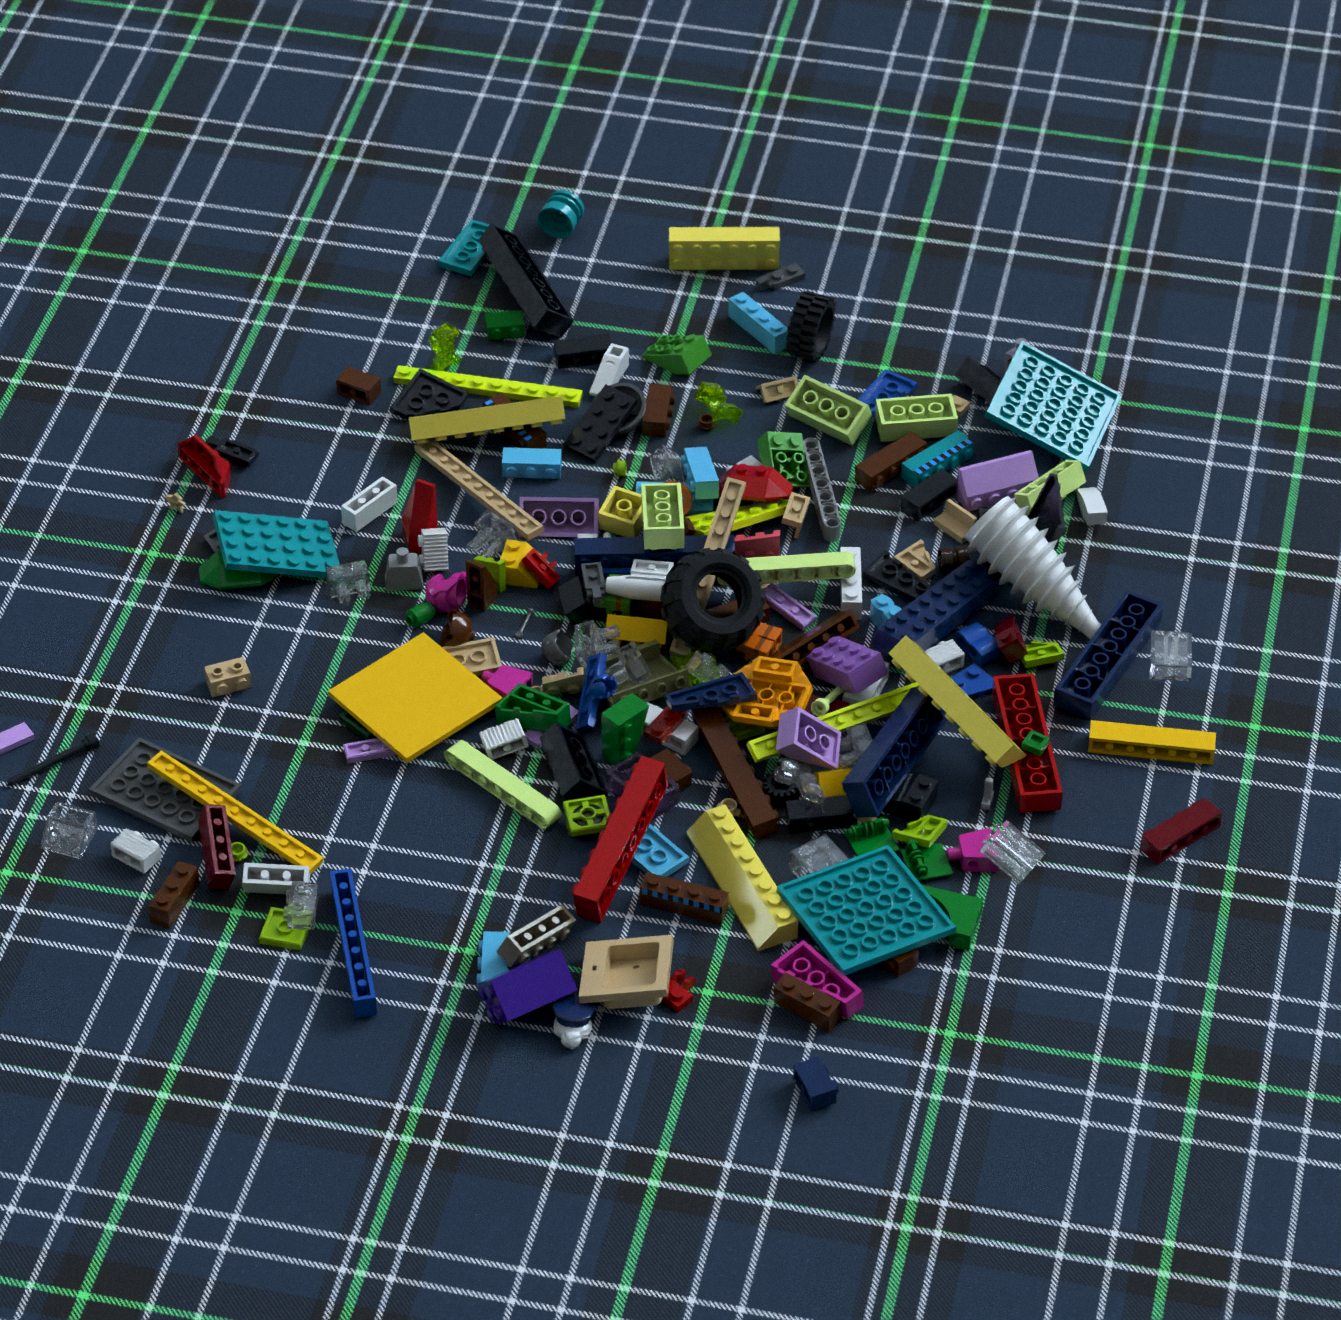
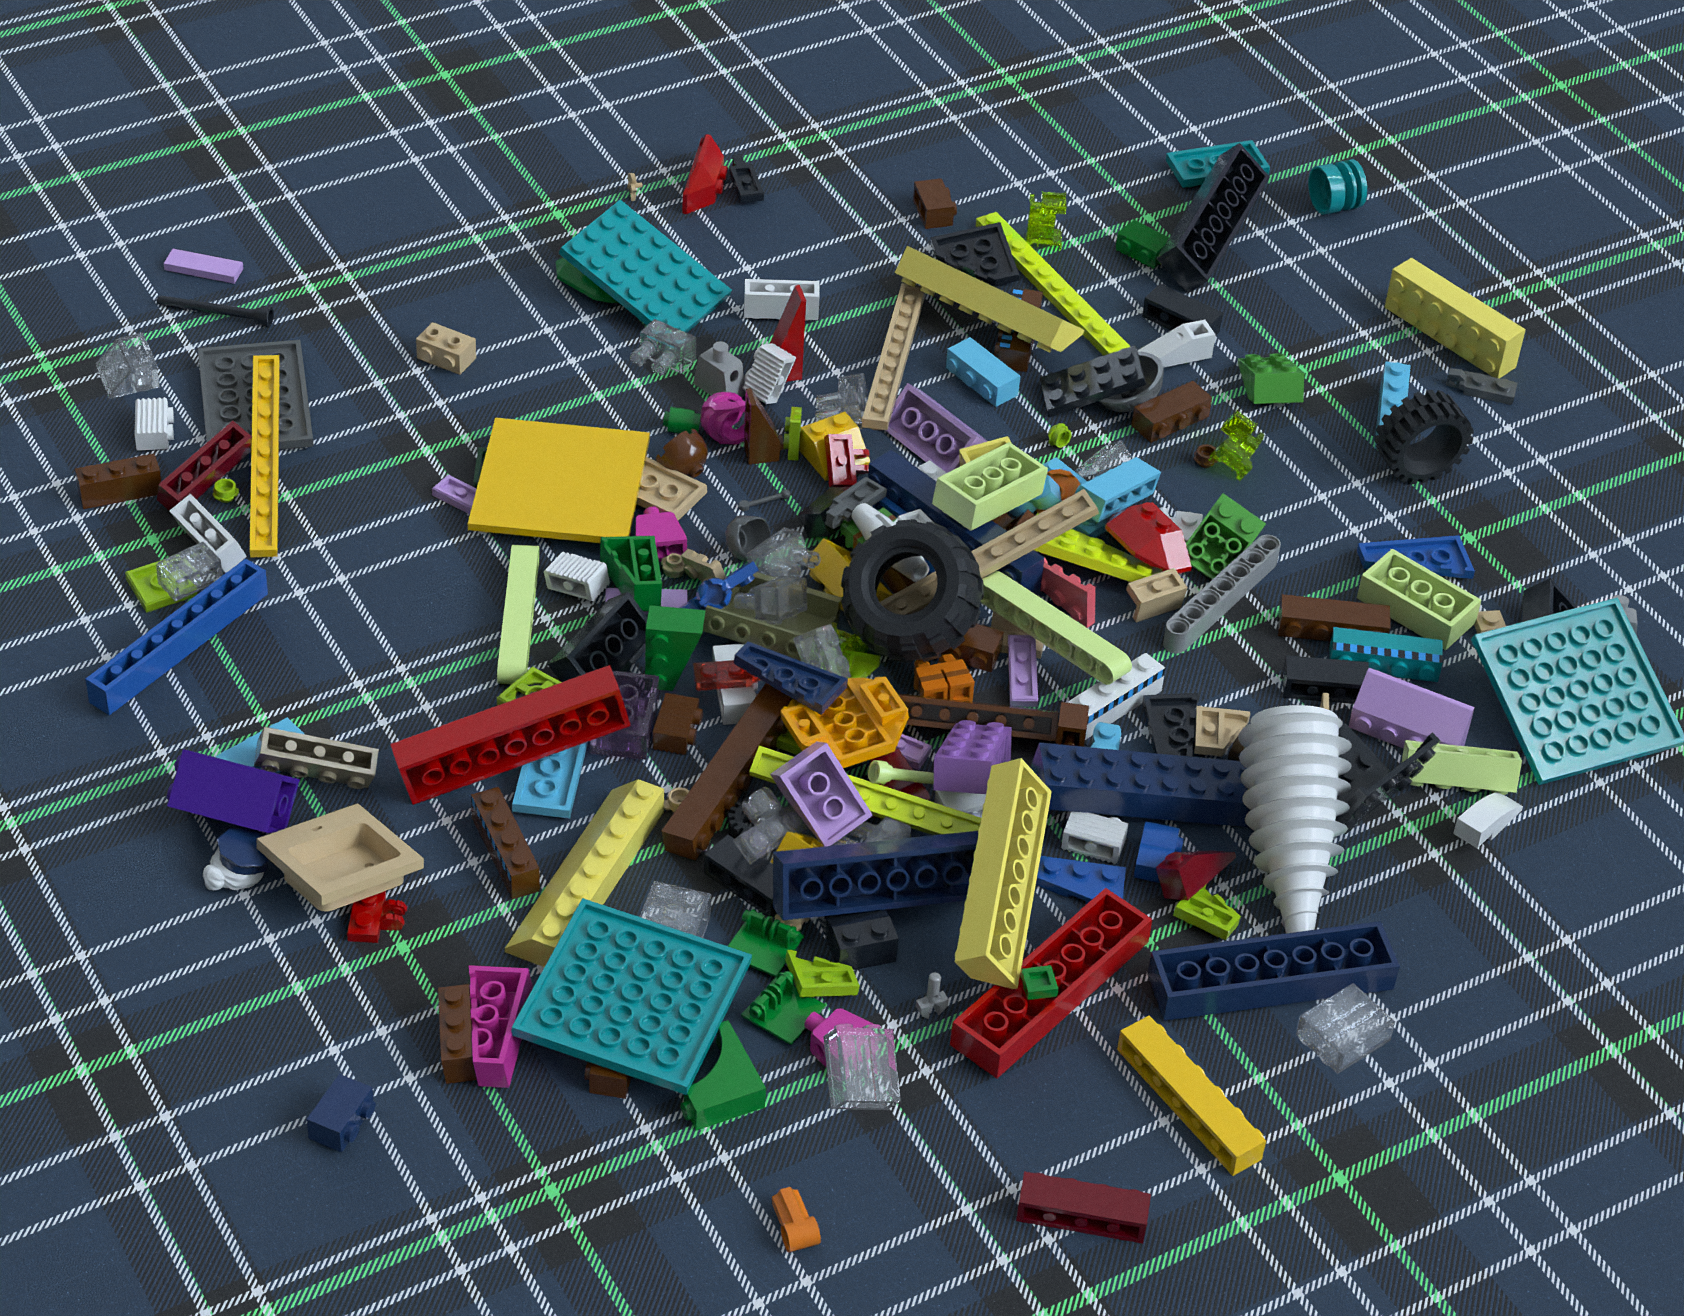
camera: 45 degrees right, 0 degrees up
(777, 389) = (1322, 478): tan panel -> none
(828, 410) = (1332, 526): yellowish green brick -> none
(868, 615) = (1072, 724): none -> reddish brown brick
(1081, 948) = (797, 1227): none -> orange piece

